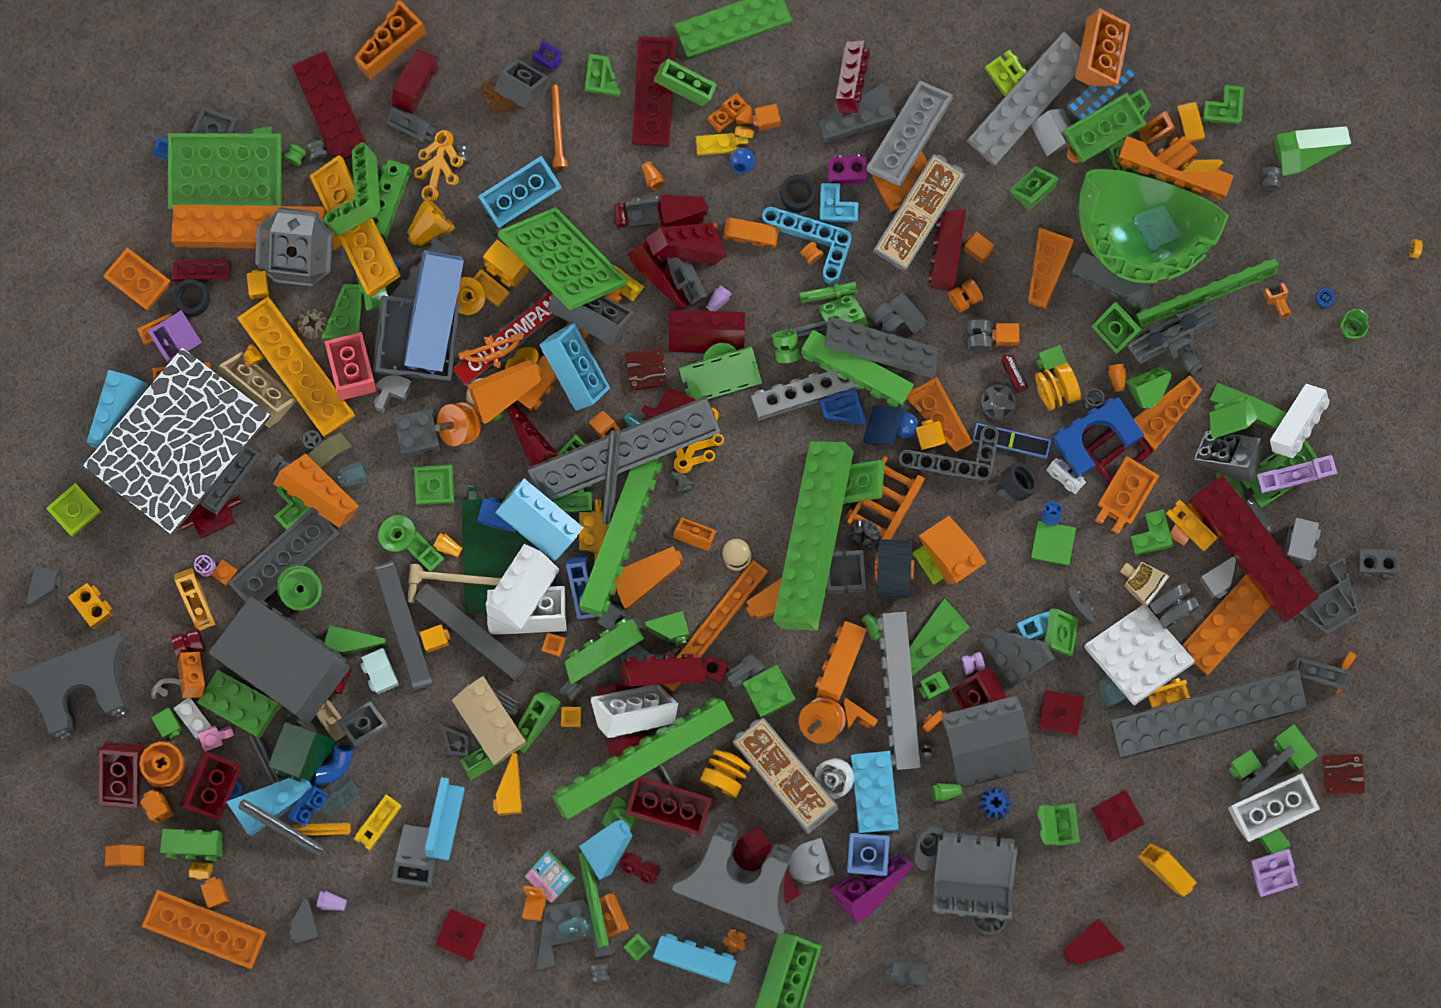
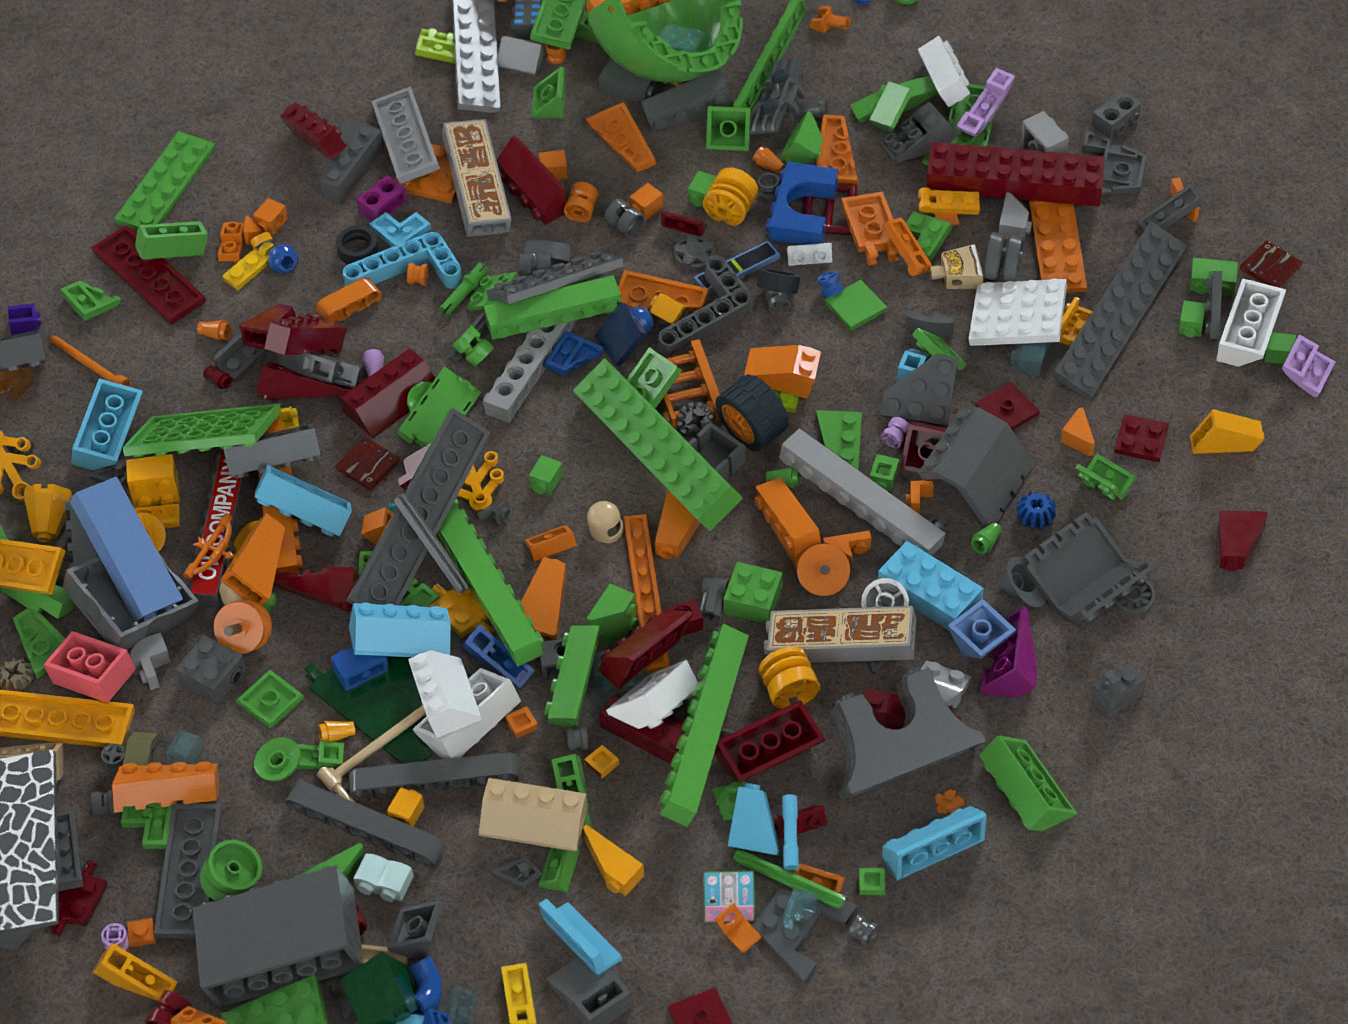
camera: 45 degrees left, 25 degrees down
(610, 884) = (790, 848): none -> medium azure piece
(736, 485) = (545, 475): none -> bright green brick
(1080, 775) = (1078, 433): none -> orange slope
(1126, 535) = (907, 246): none -> orange plate

